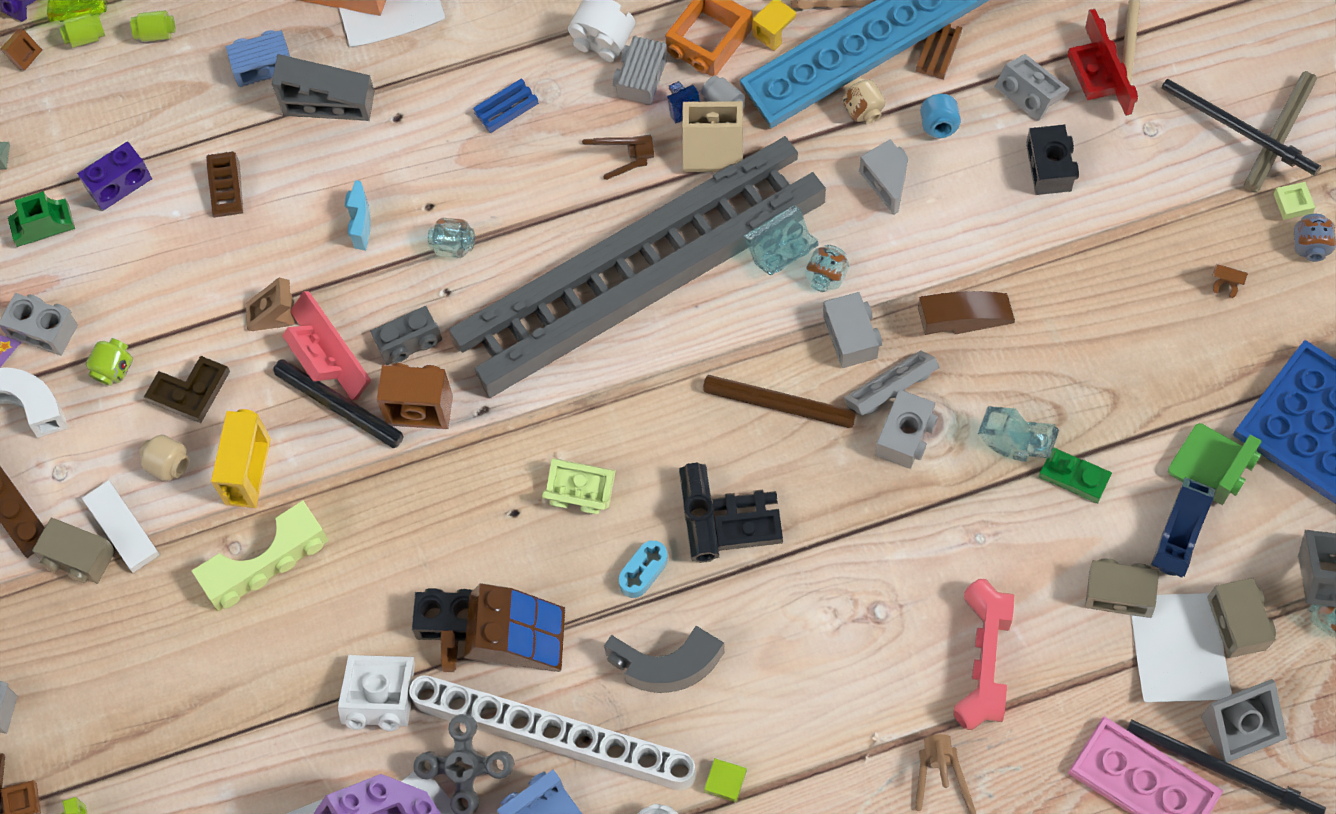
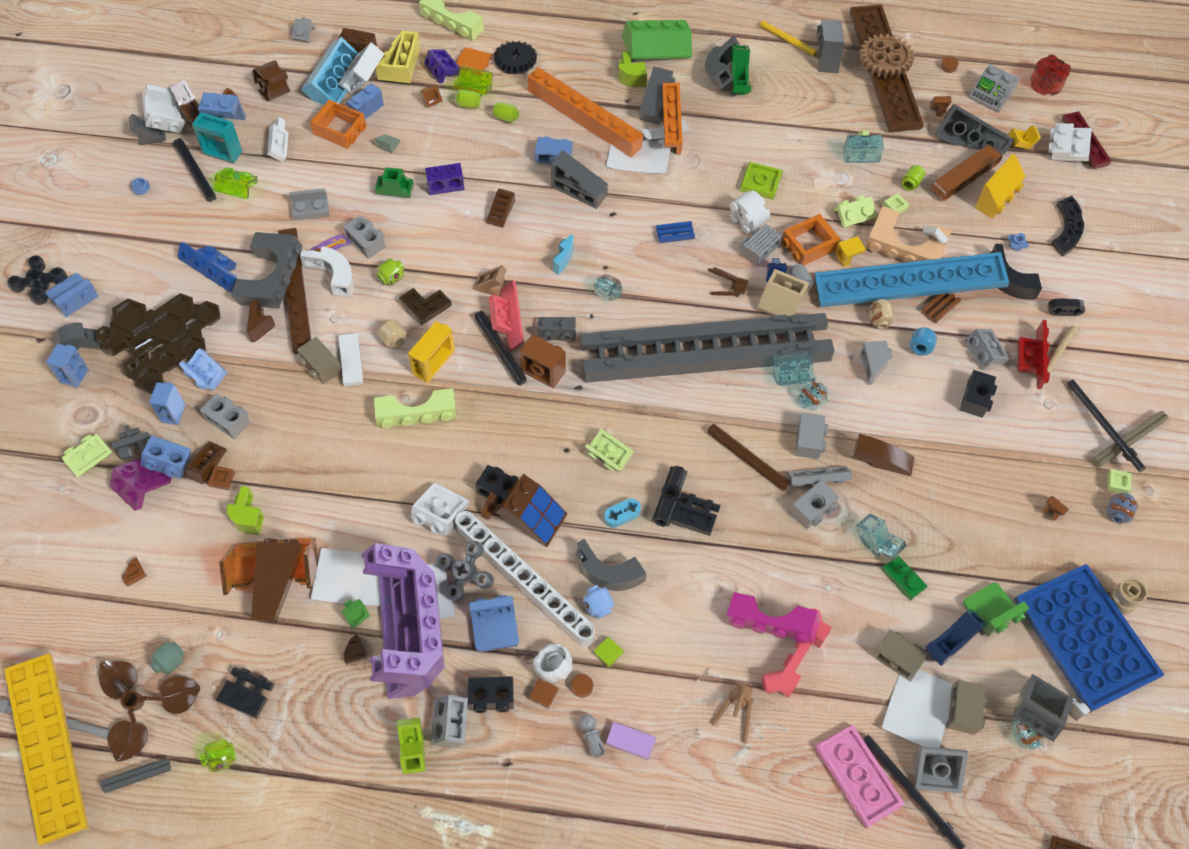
camera: 20 degrees right, 5 degrees down
(676, 716) = (598, 602): none -> light blue head
(969, 615) = (799, 624): none -> dark pink arch

